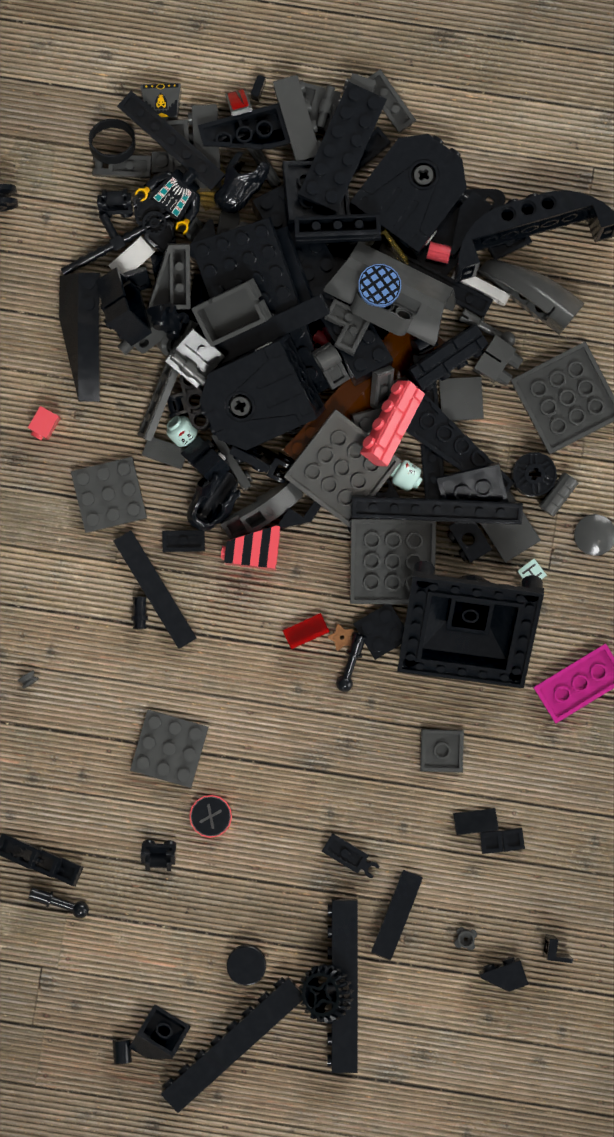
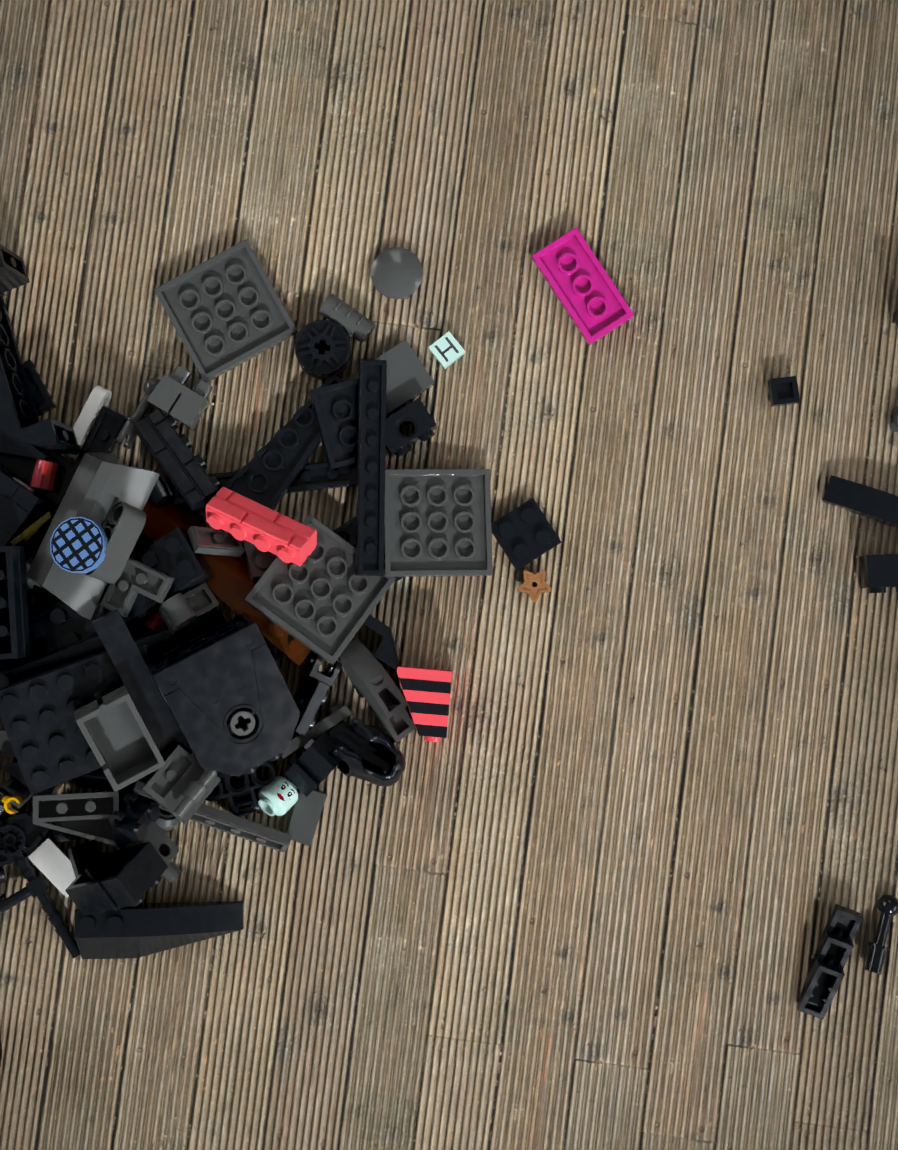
camera: 90 degrees left, 0 degrees up
(28, 679) = (601, 983): dark grey bush -> none
(43, 423) = (272, 974): coral brick -> none
(109, 495) = (362, 886): dark grey plate -> none
(139, 613) = (511, 842): black pin -> none
(155, 589) = (480, 823): black tile -> none
(158, 855) = (818, 809): black piece -> none
(169, 748) = (681, 798): dark grey plate -> none
(183, 541) = (418, 789): black plate -> none
(210, 816) = (764, 743): black tile -> none
(306, 631) = (528, 629): red panel -> none
(344, 682) = (590, 579): black pin -> none
(348, 855) = (807, 568): black plate -> none
(406, 476) = (329, 507): light aqua head -> none
(442, 750) = (671, 455): dark grey tile -> none
(462, 398) = (229, 442): dark grey tile -> none
(470, 627) = (519, 417): black piece -> none
(475, 821) = (759, 411): black slope -> none
(512, 839) = (778, 364): black tile -> none
(555, 300) = (104, 322): dark grey panel -> none

